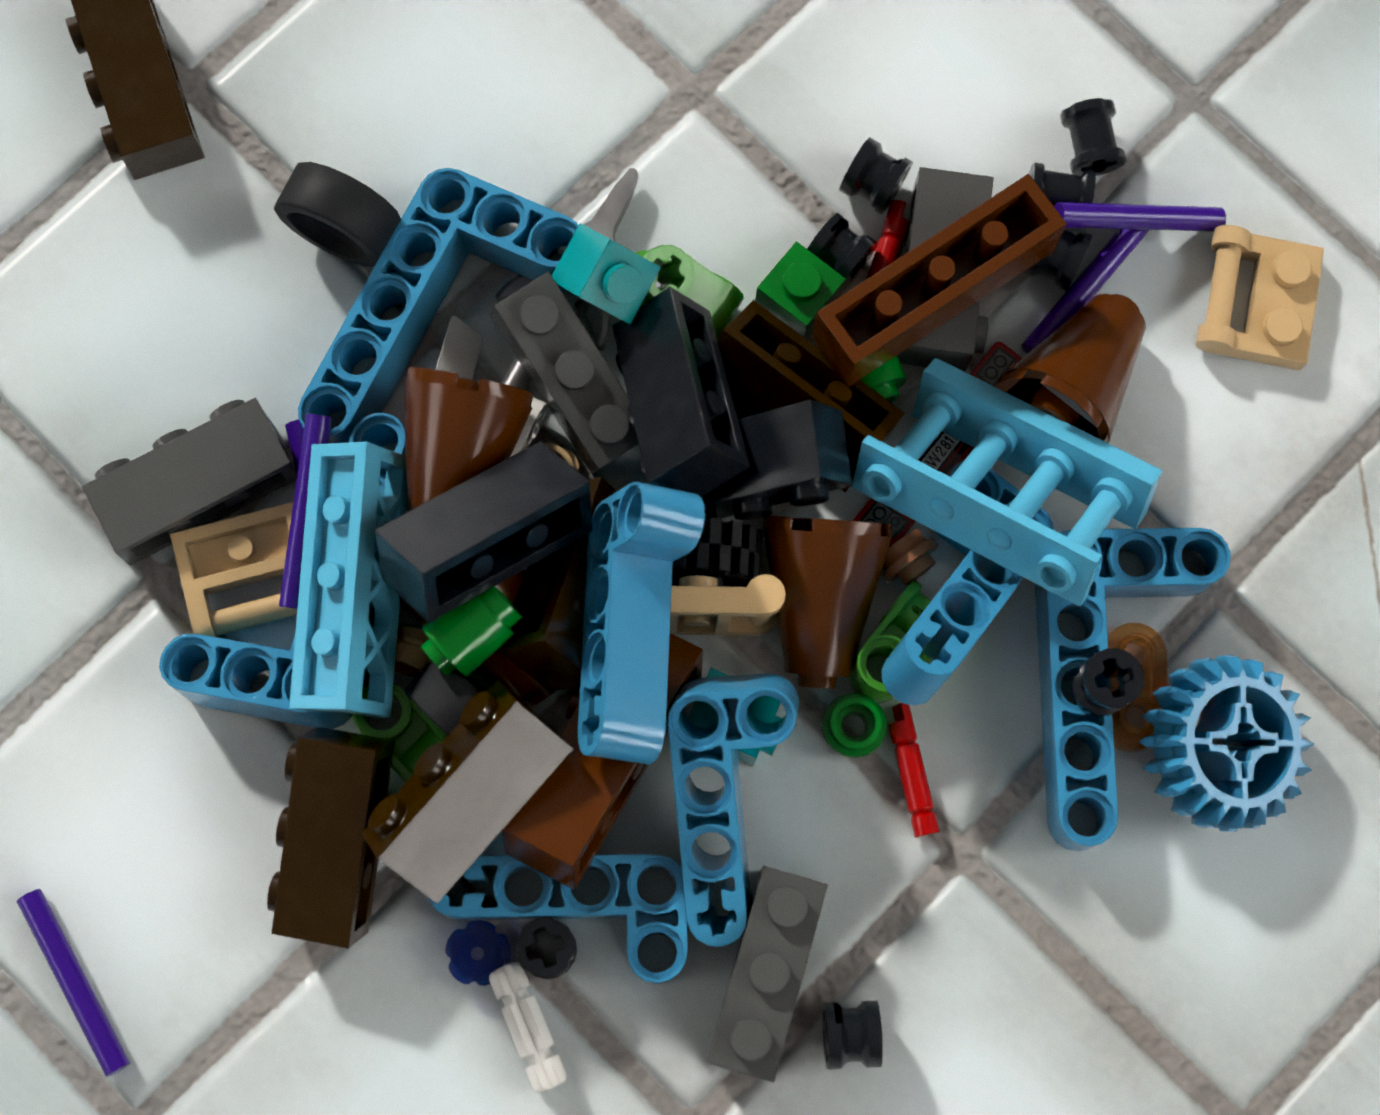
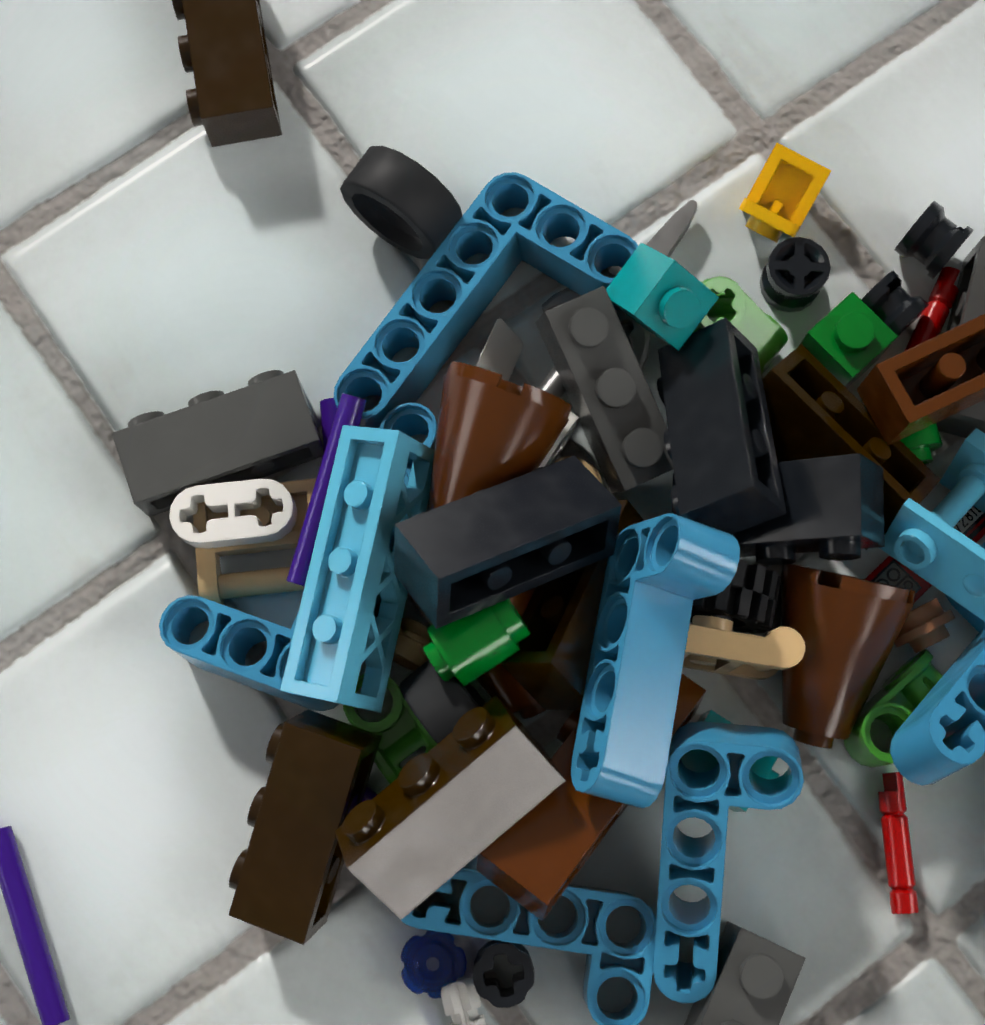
camera: 15 degrees right, 0 degrees up
(213, 533) = (233, 498): none -> white beam
(721, 150) = (783, 193): none -> yellow bracket
(744, 215) = (801, 261): none -> black wheel
(868, 711) = (864, 787): green plate -> none

